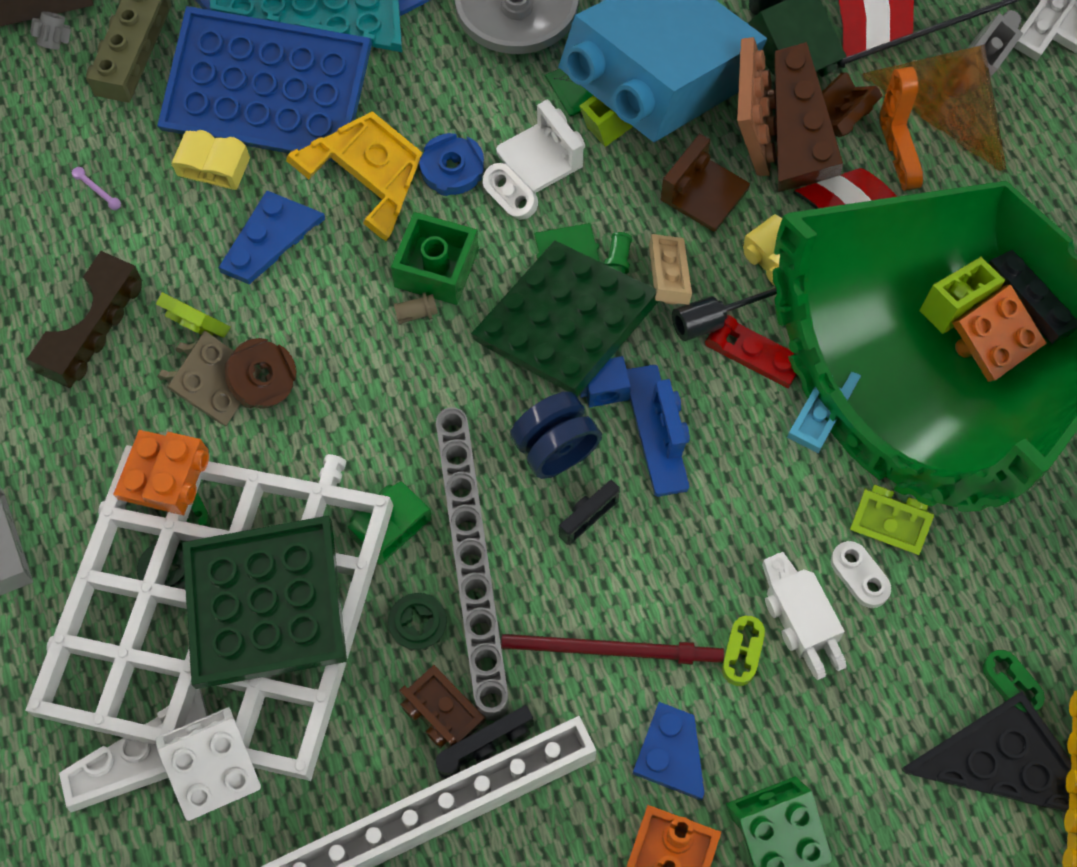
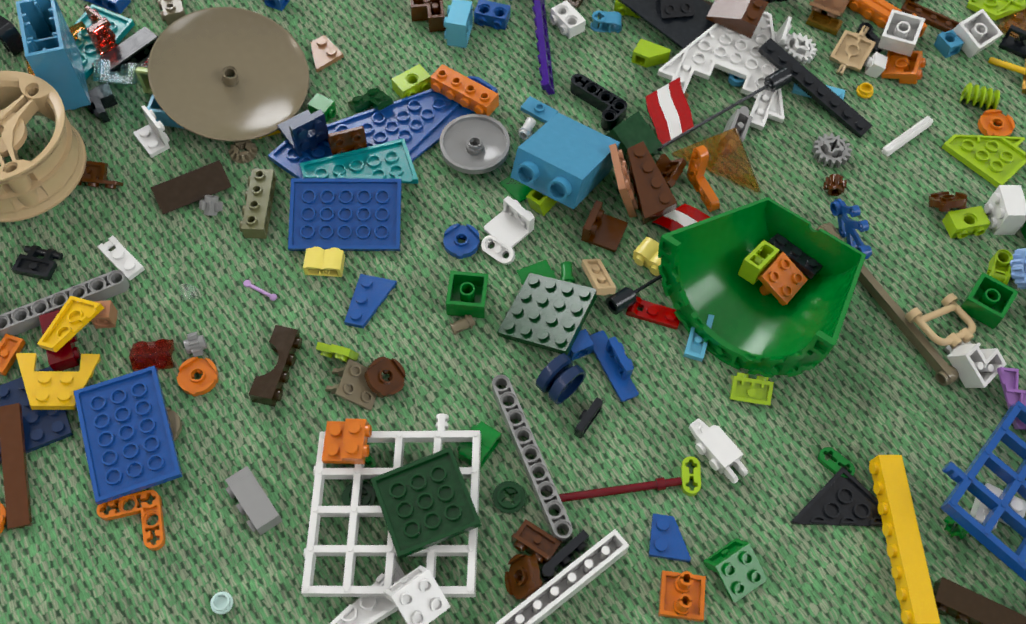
camera: 15 degrees left, 5 degrees down
(375, 157) = (418, 244): yellow wing -> none
(402, 764) = (524, 566): none -> reddish brown plate
(859, 573) = (741, 422): white plate -> none

